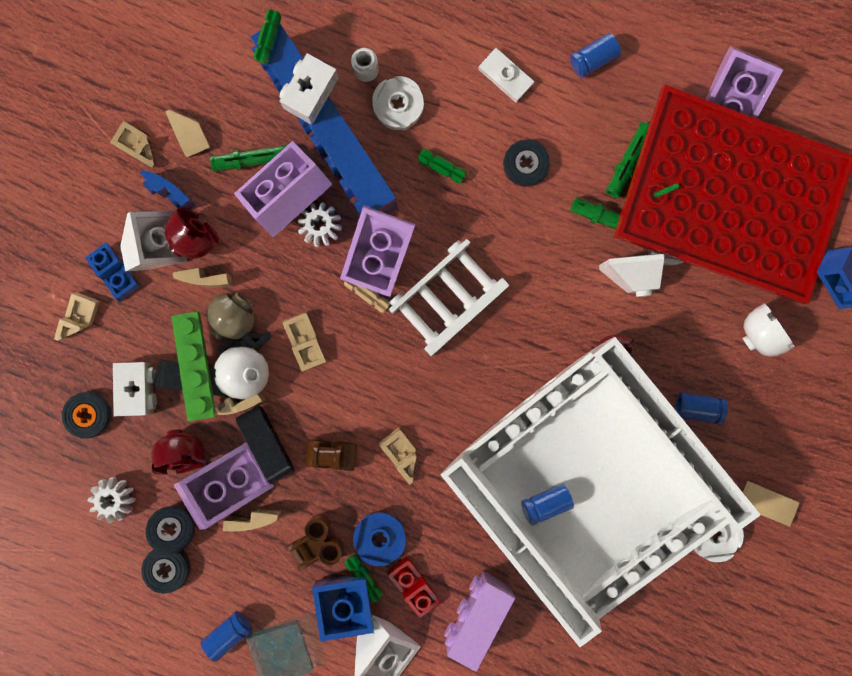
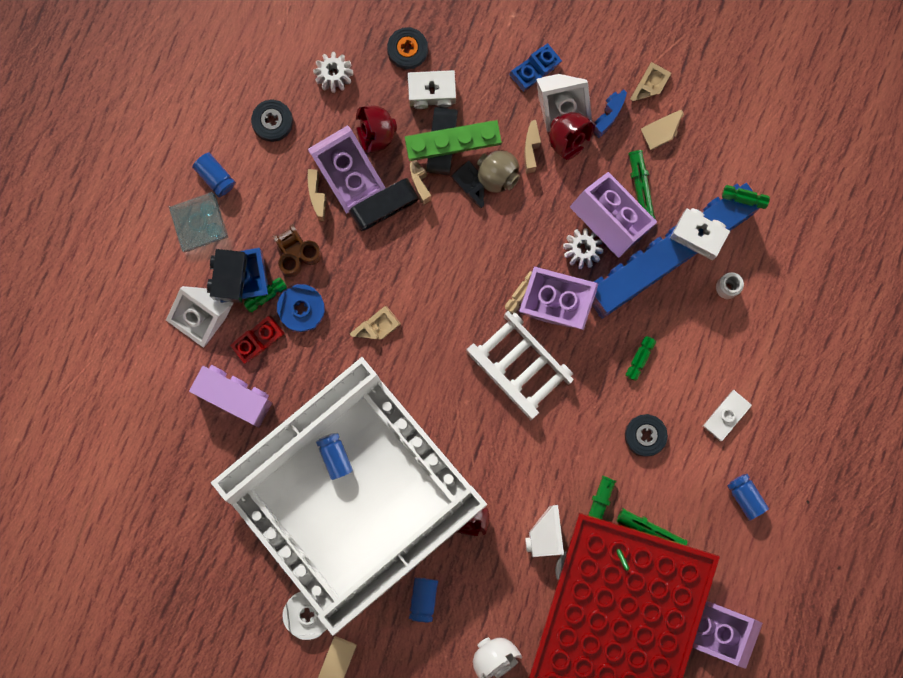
camera: 80 degrees right, 5 degrees down
(78, 316) = (496, 39): tan slope -> none
(169, 544) = (318, 123): black bush -> none
(241, 372) = (448, 182): white cylinder -> none
(304, 341) = (477, 237): tan slope -> none
(331, 455) = (375, 263): reddish brown piece -> none
(344, 626) = (227, 275): none -> black brick
(392, 89) = (709, 312): white plate -> none

